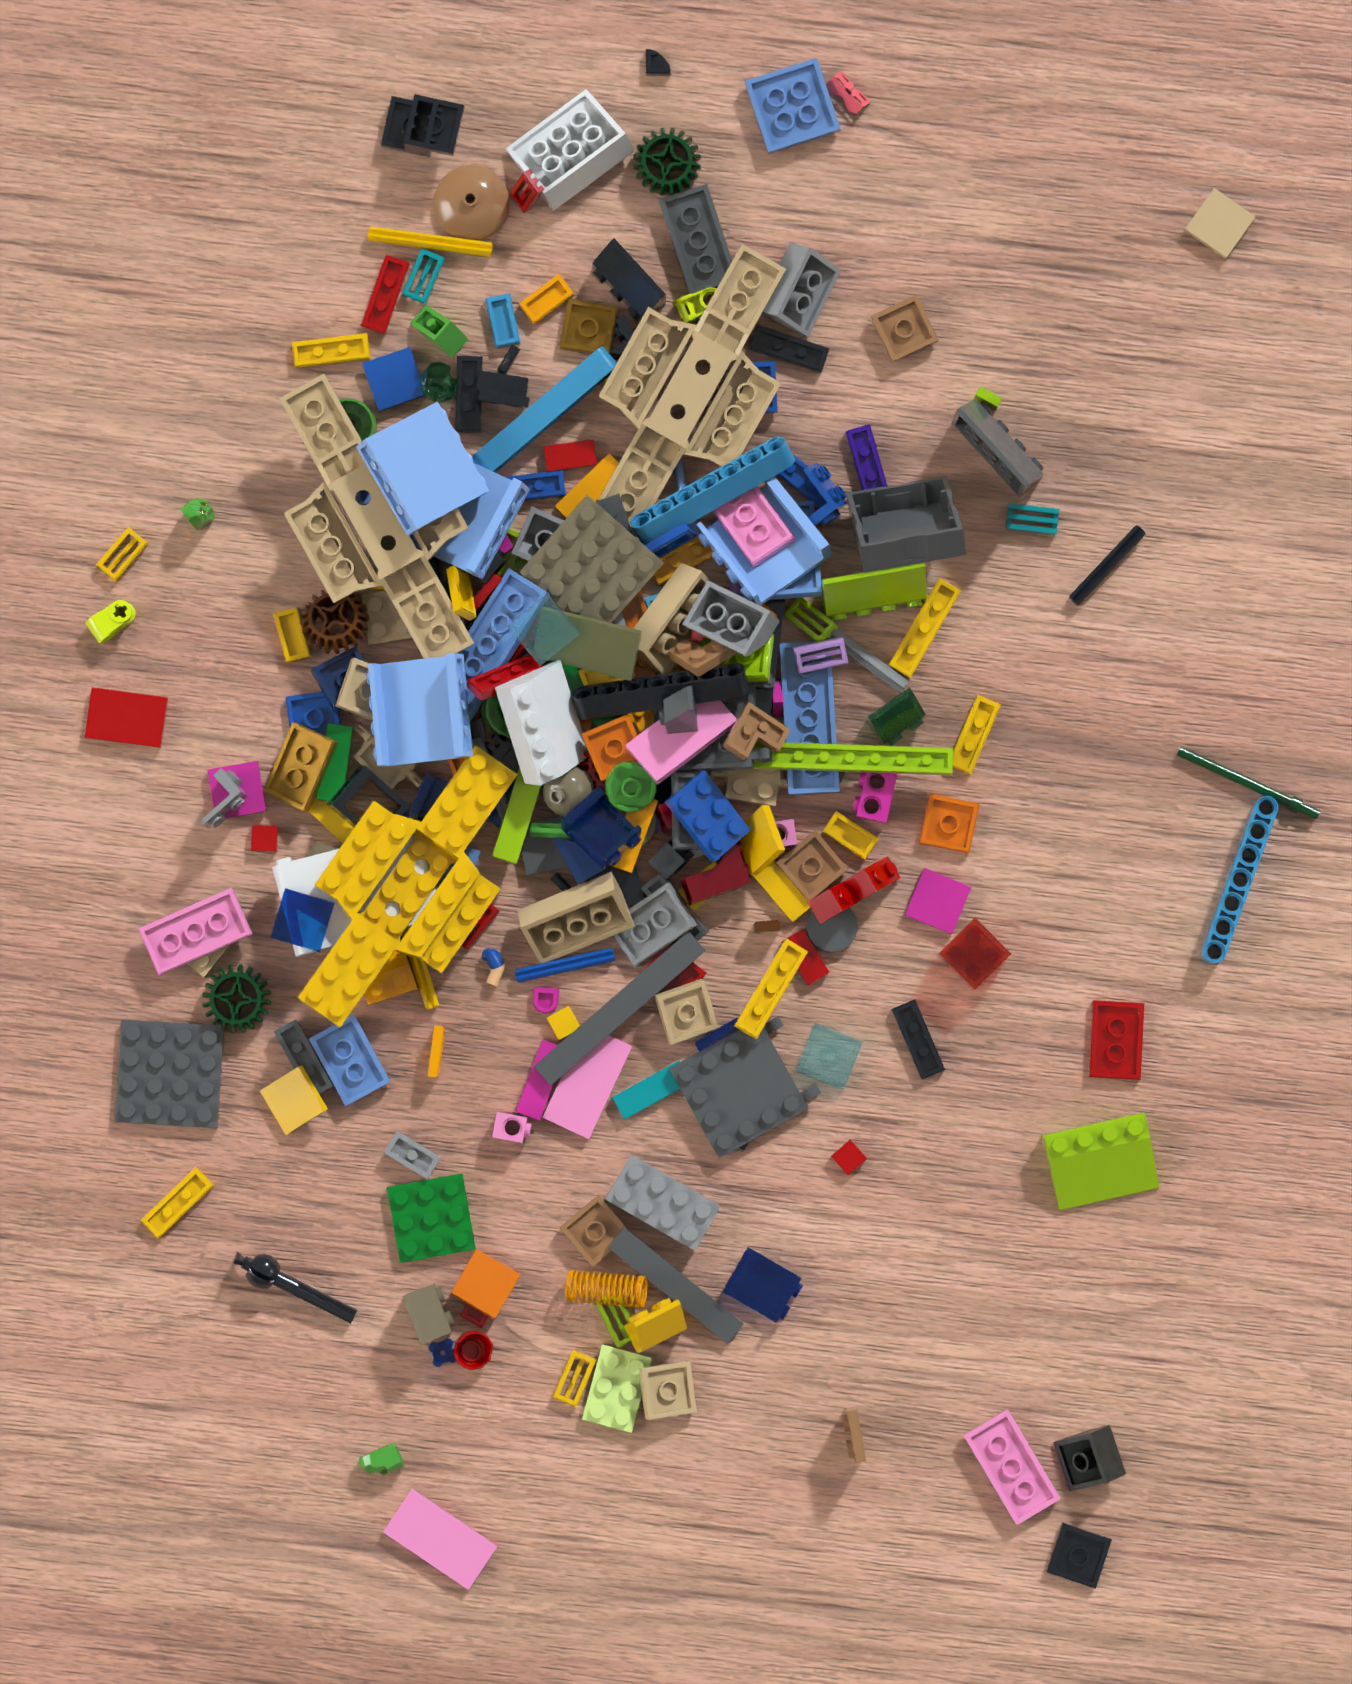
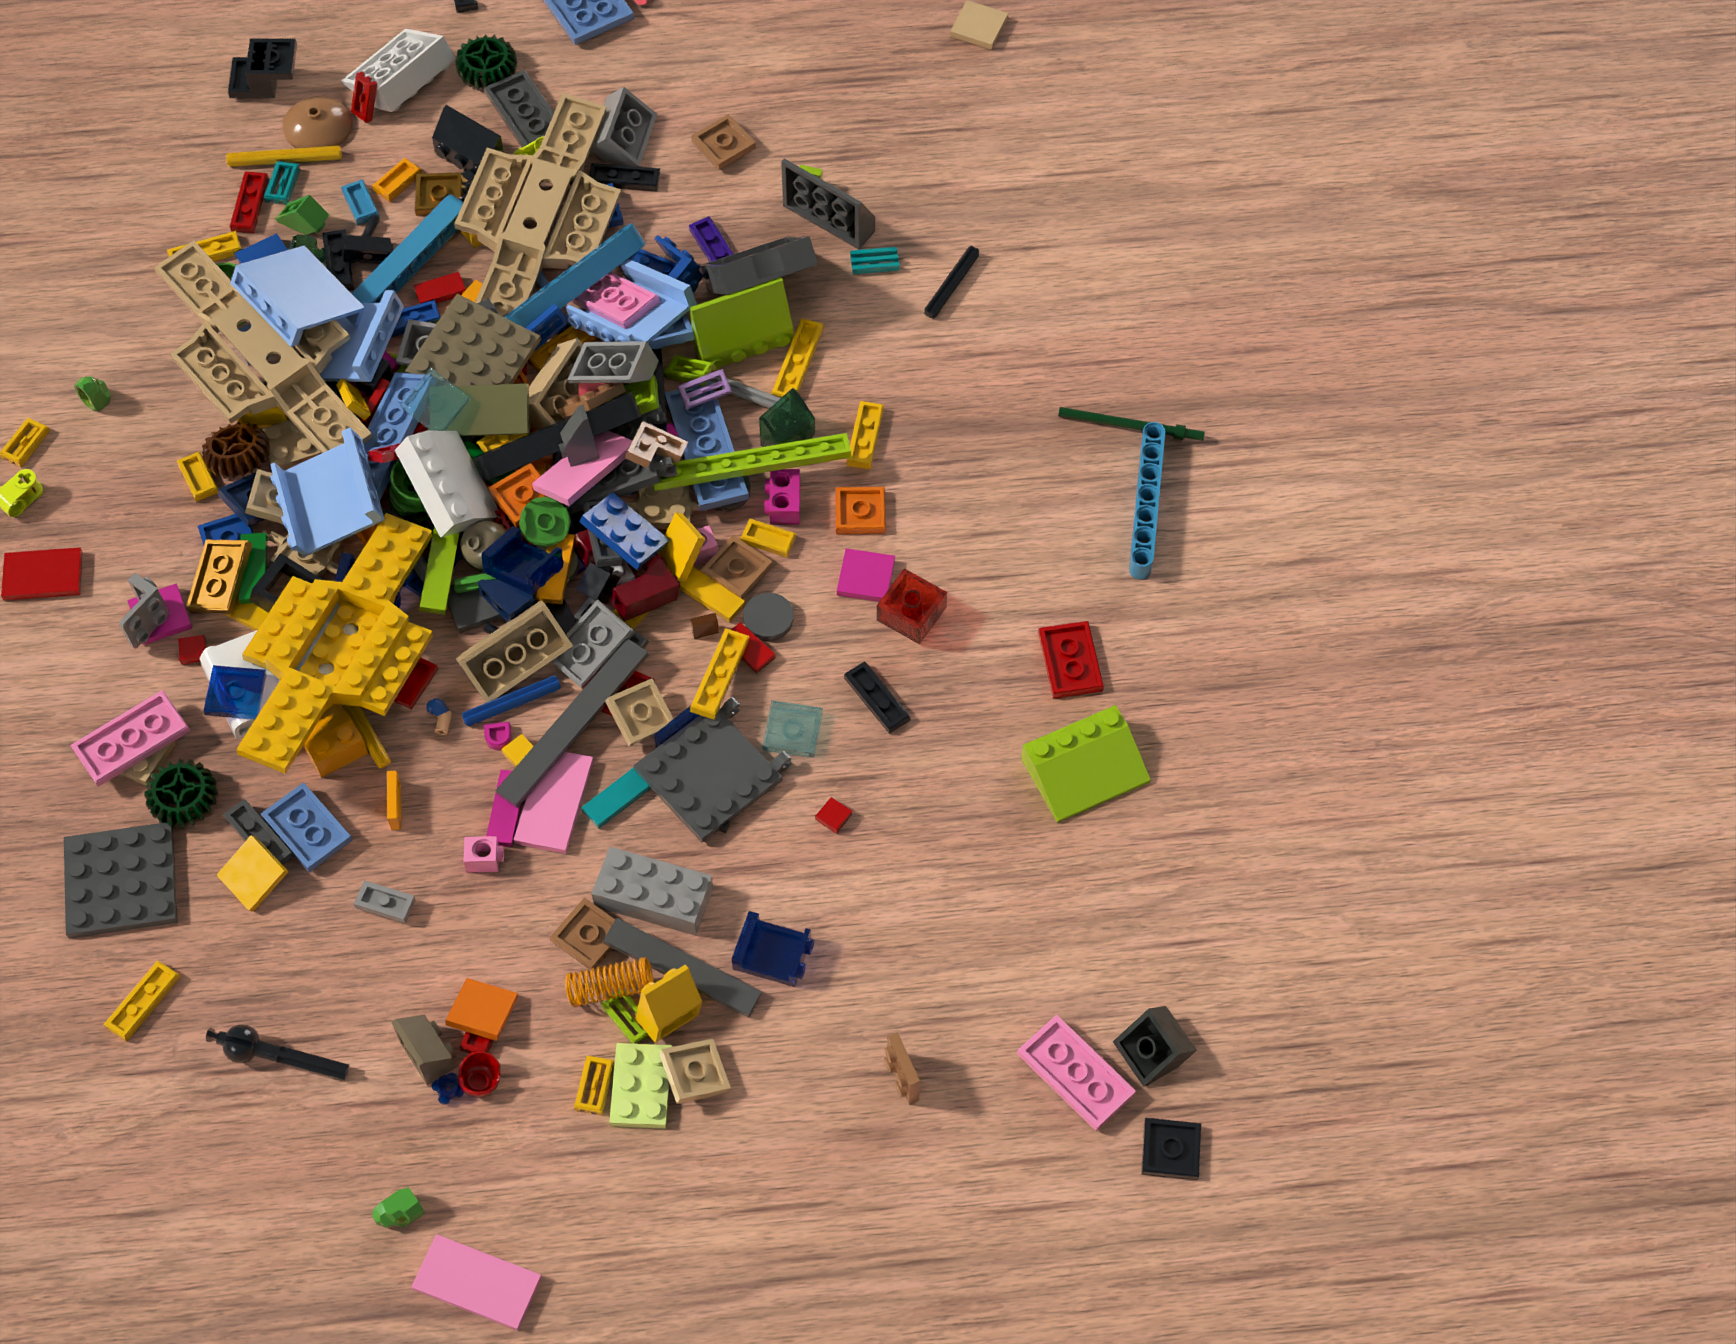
camera: 15 degrees left, 25 degrees down
(431, 1218) = (414, 960): green plate -> none
(854, 889) = (788, 567): red arch -> none

